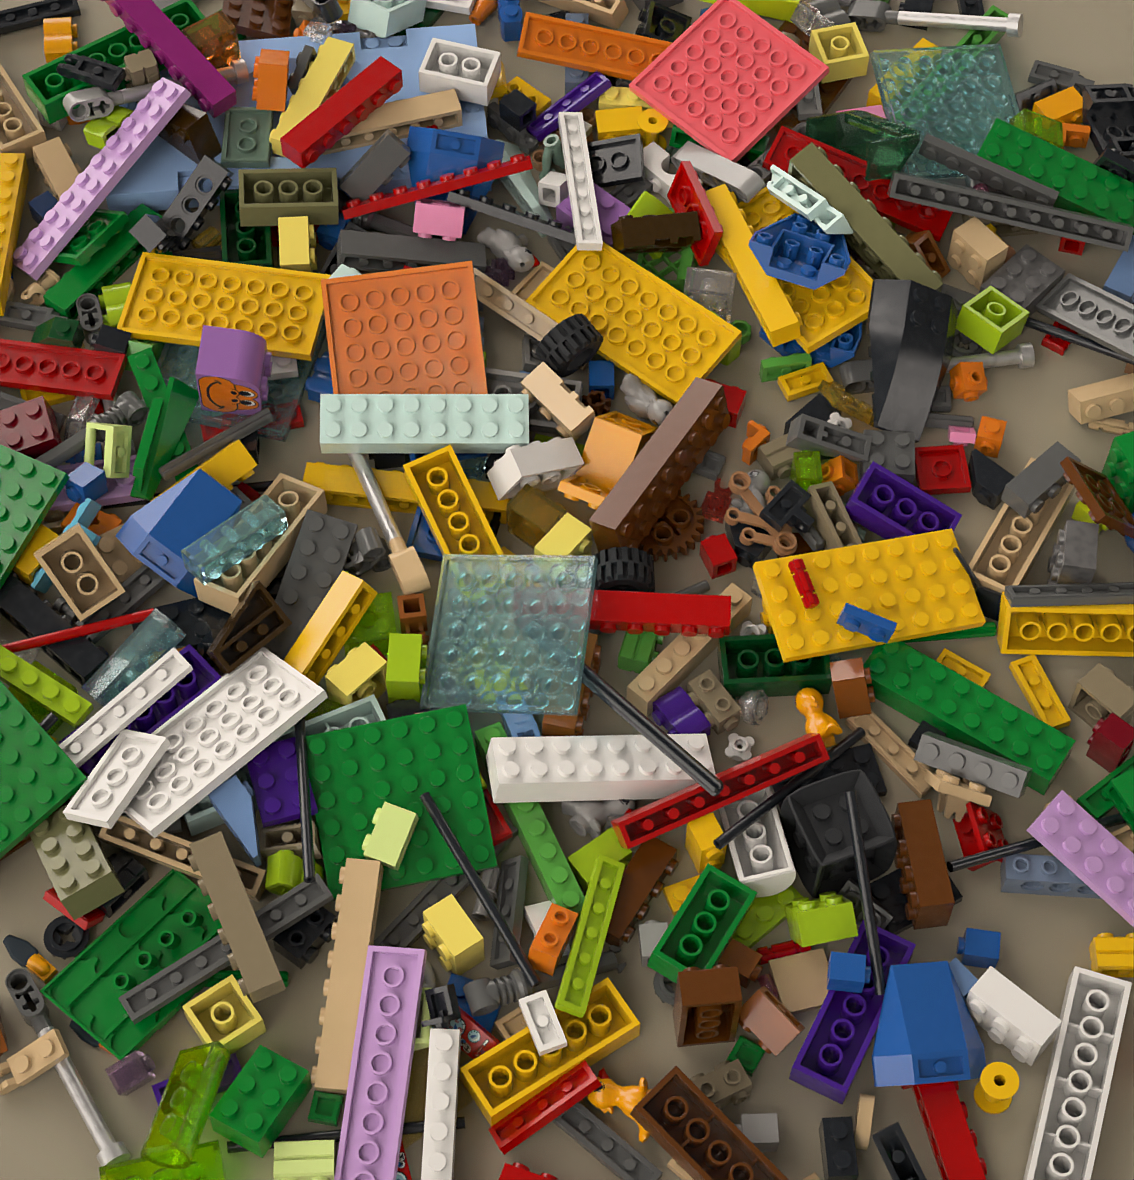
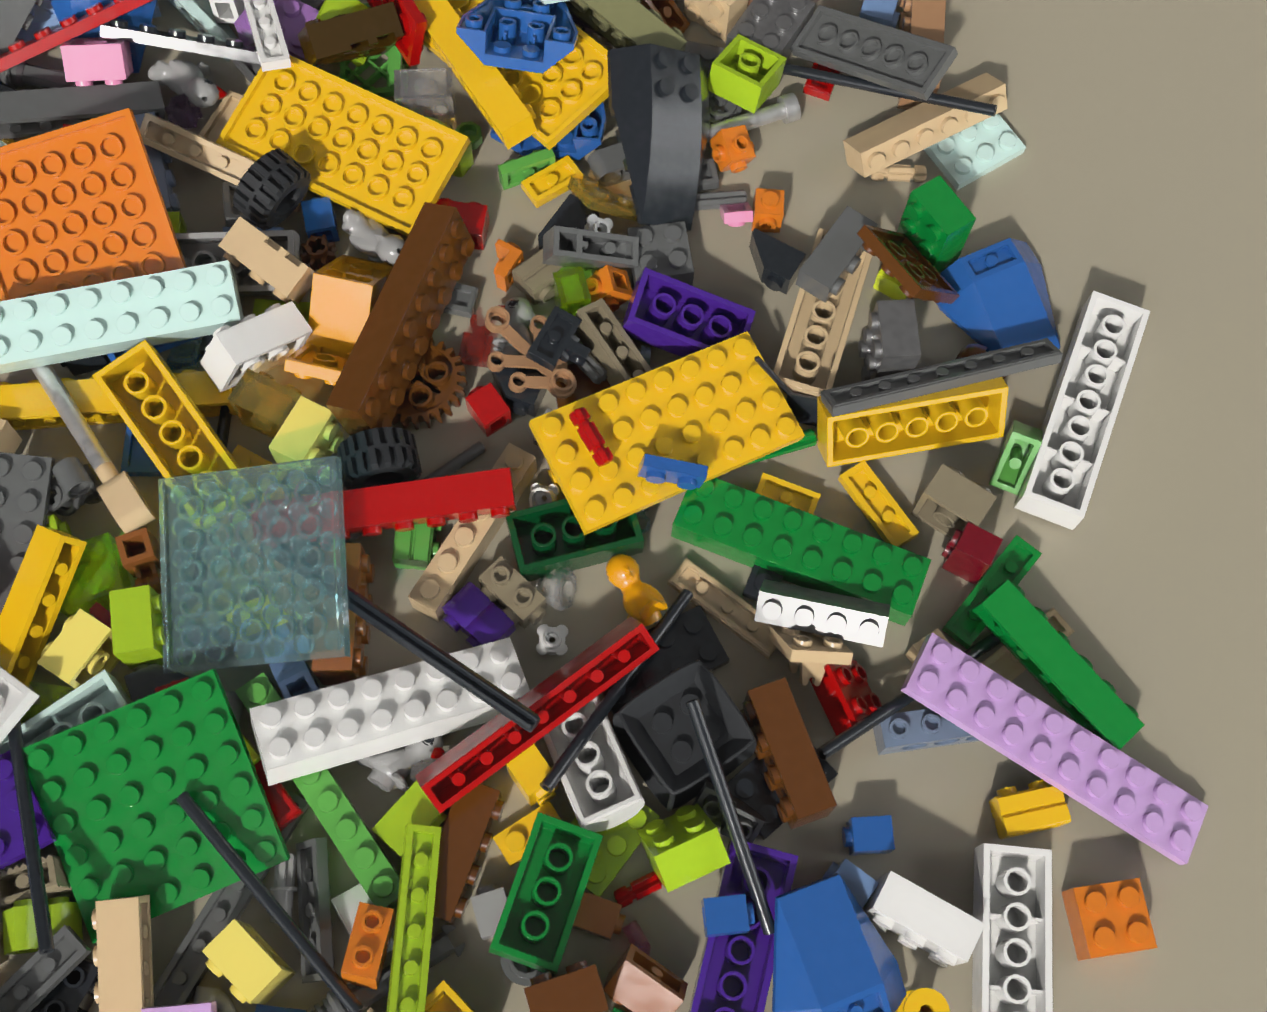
camera: 15 degrees left, 10 degrees up
(390, 835) = (146, 857): yellowish green brick -> none
(801, 980) = (672, 921): tan tile -> none
(851, 688) = (668, 545): dark orange brick -> none
(942, 469) = (722, 258): red plate -> none

